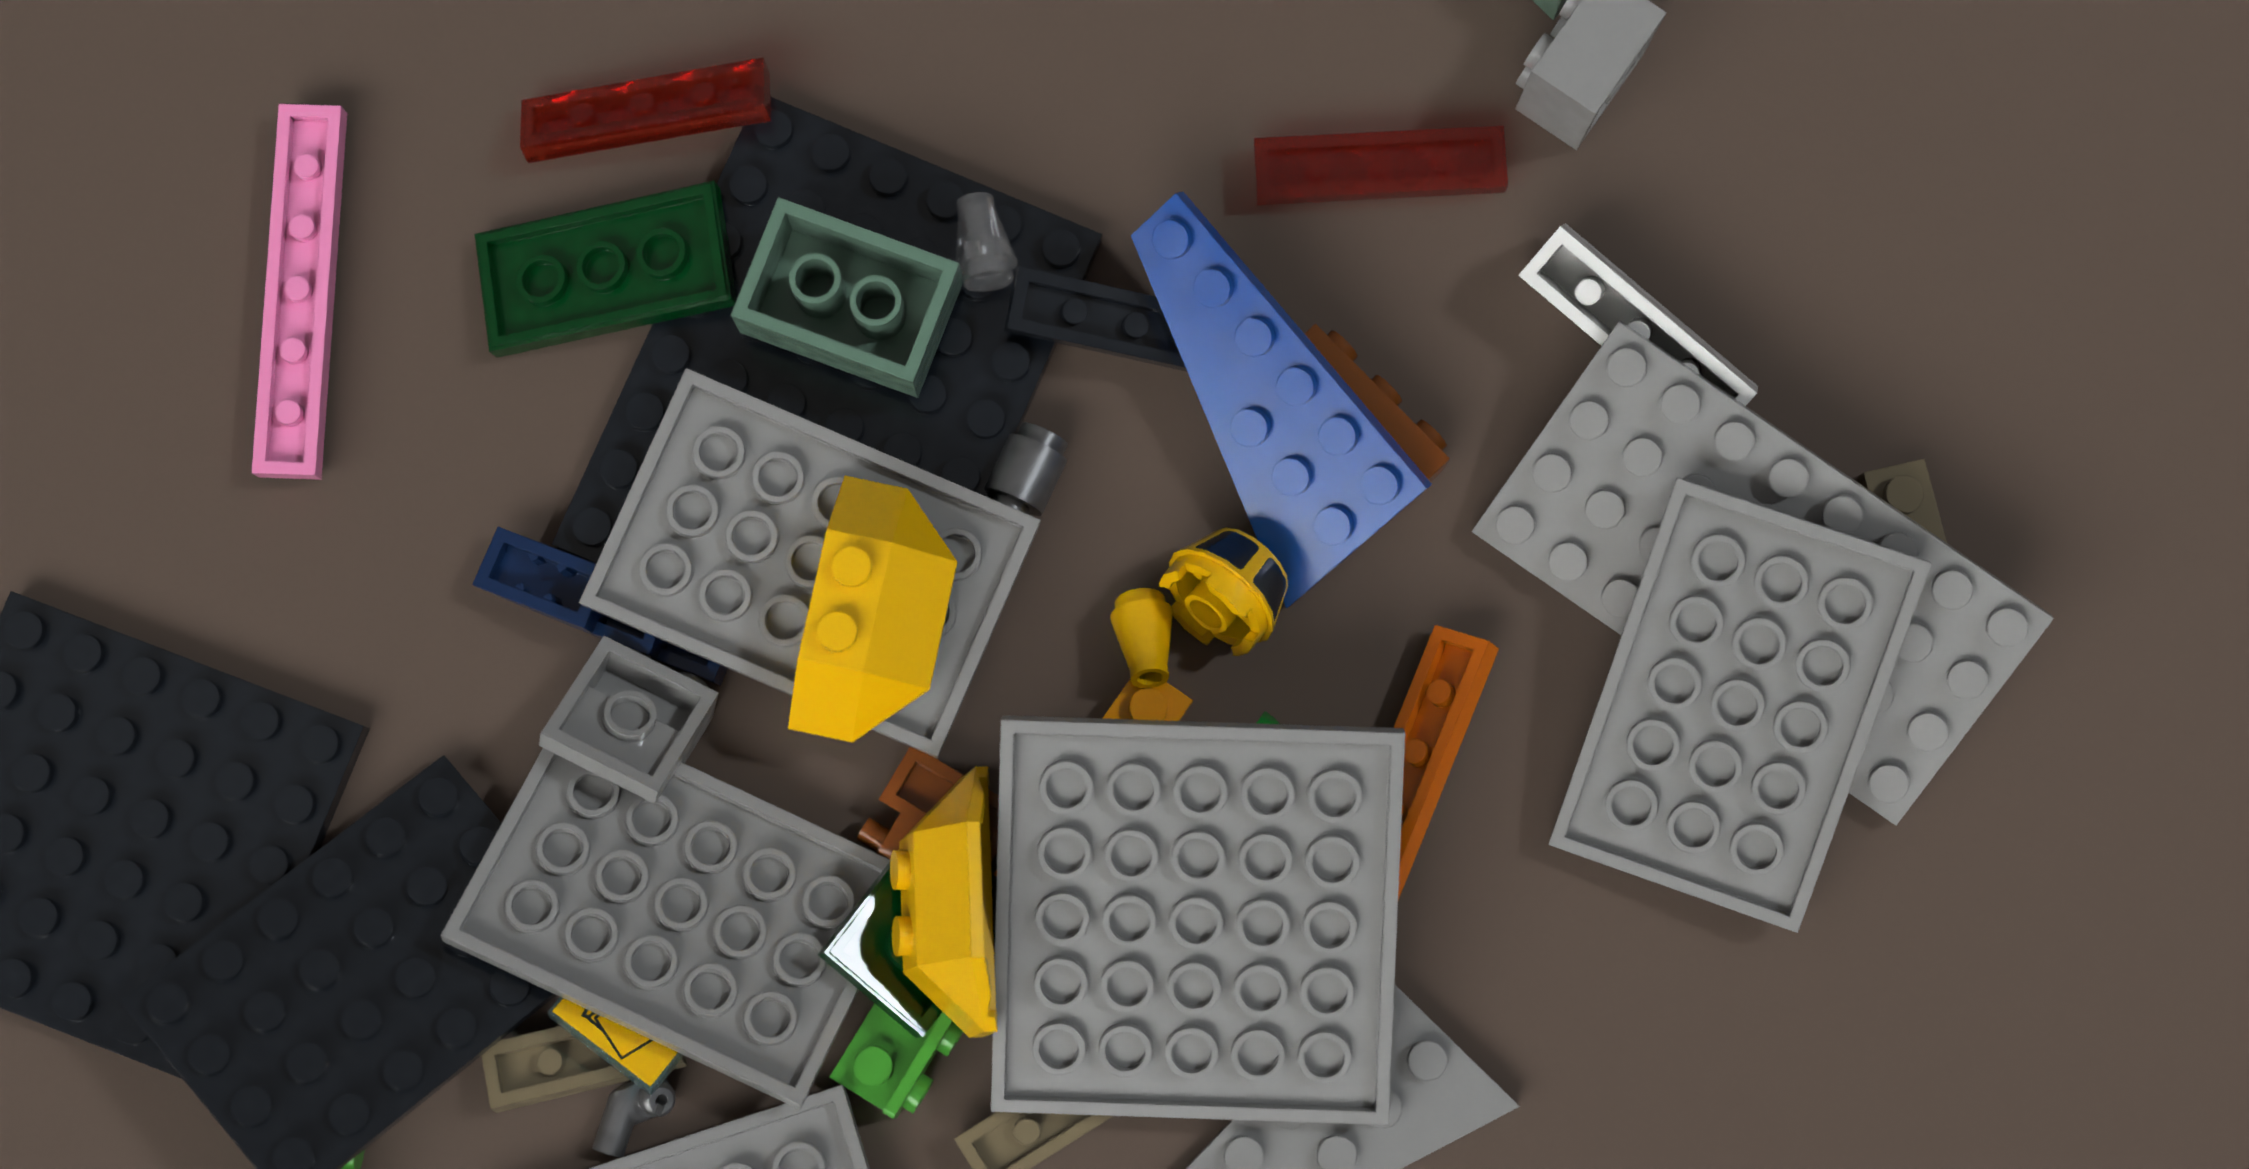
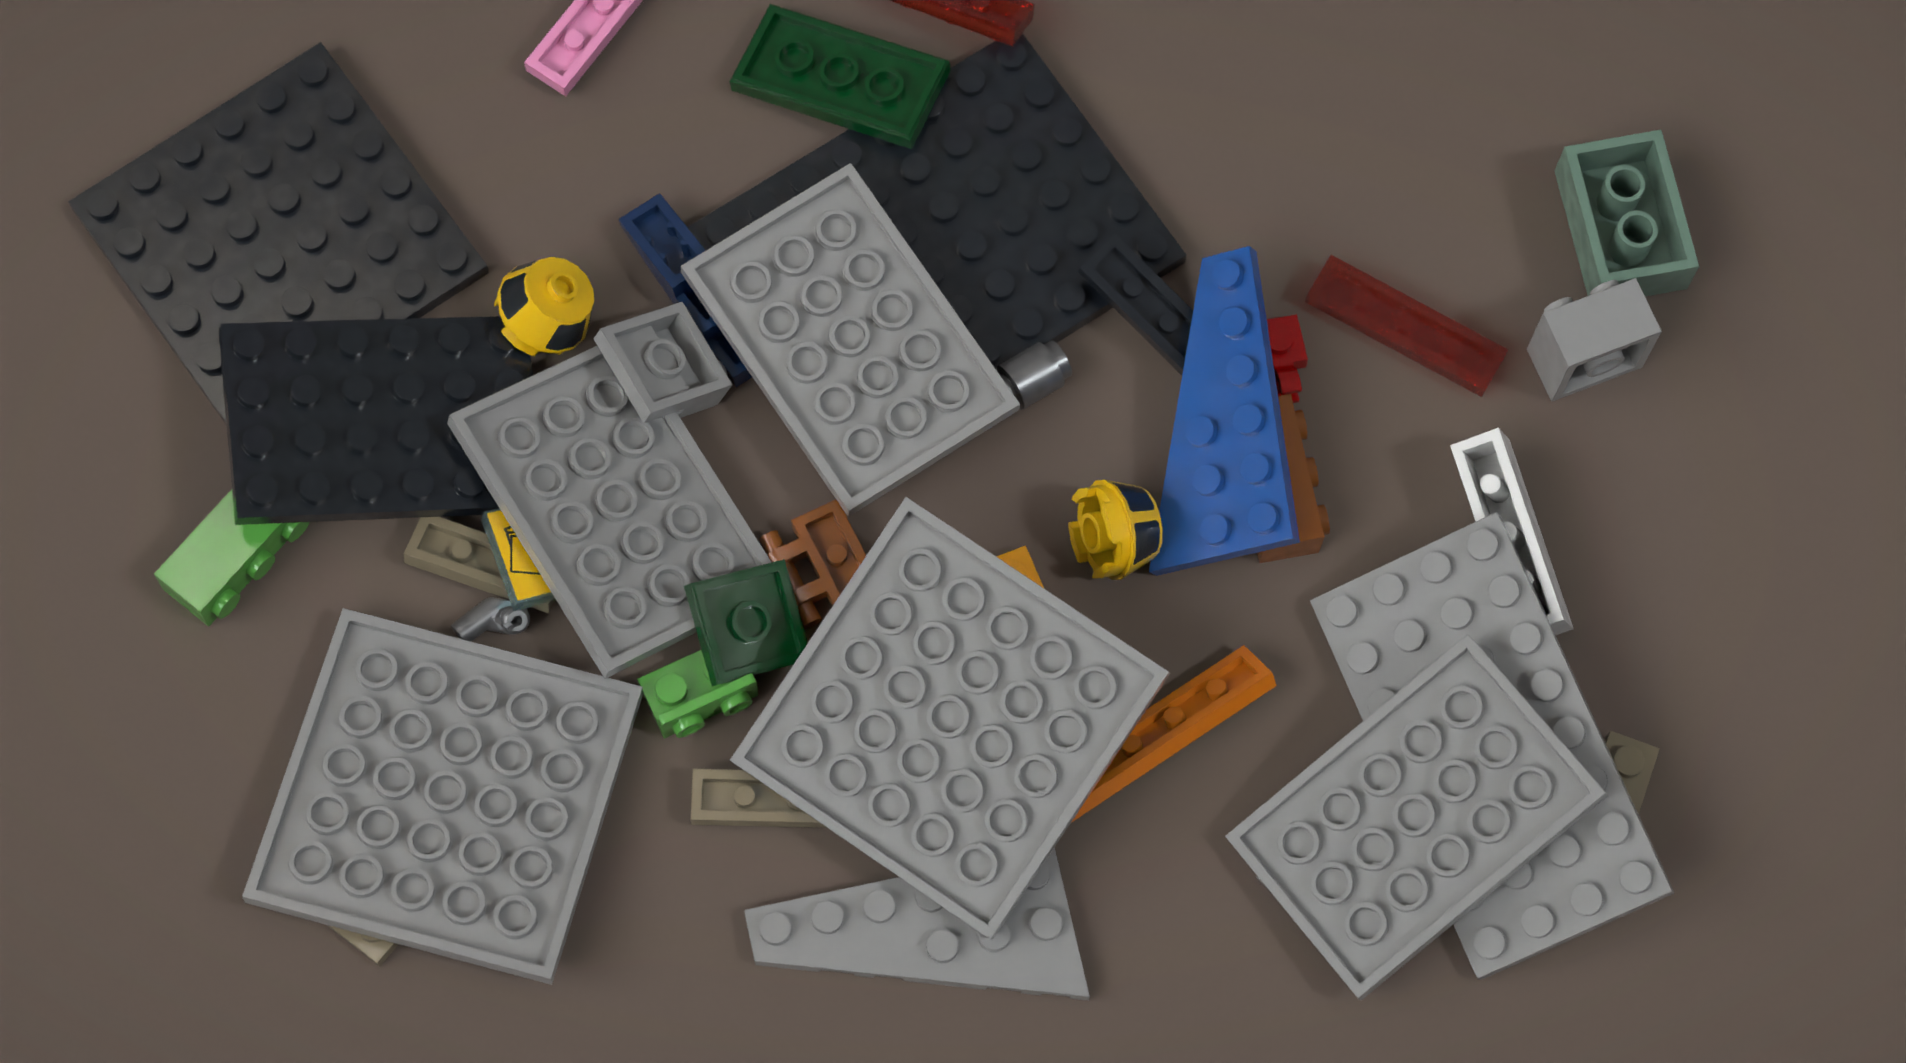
camera: 30 degrees right, 10 degrees down
(459, 737) = (545, 306): none -> yellow cone
(847, 297) = (987, 184): sand green brick -> none
(871, 613) = (864, 388): yellow wedge -> none
(949, 907) = (791, 606): yellow wedge -> none
(983, 245) = (1098, 211): clear cone -> none
(1144, 634) = (1041, 524): yellow cone -> none
(1278, 274) = (1287, 354): none -> red plate

